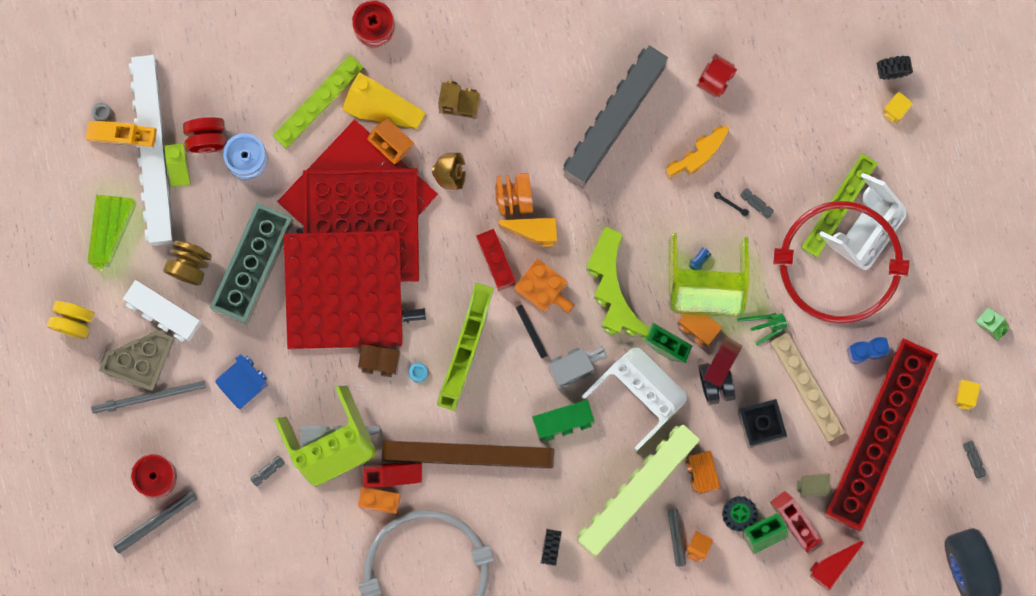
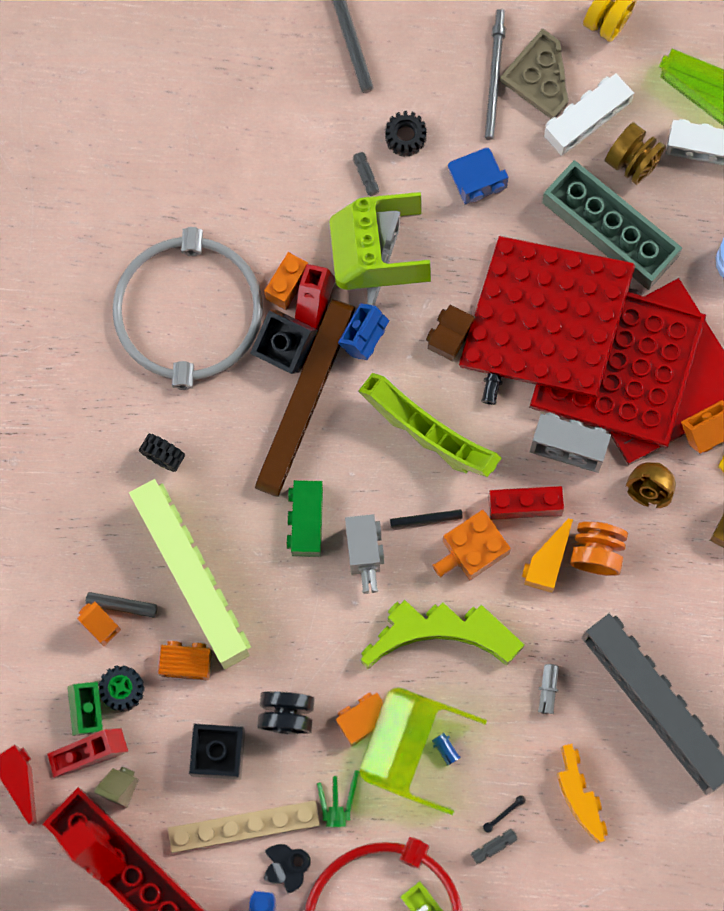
camera: 110 degrees right, 5 degrees down
(165, 479) = (401, 49): red wheel -> none
(215, 442) = (405, 121): none -> black tyre
(402, 426) = (363, 331): none -> blue brick
(418, 372) = (422, 373): medium azure tile -> none
(431, 483) = (284, 341): none -> black brick
(439, 240) = (570, 442): none -> light grey brick
(630, 200) = (548, 689): none -> light grey axle
(648, 384) = (313, 631): white windscreen -> none
(668, 344) = (352, 667): green slope -> none
(716, 75) = (673, 849): red brick -> none
(722, 362) = (307, 726): dark red slope -> none
(826, 348) = (283, 866): none -> black plate
(870, 480) = (90, 849): none -> red wedge

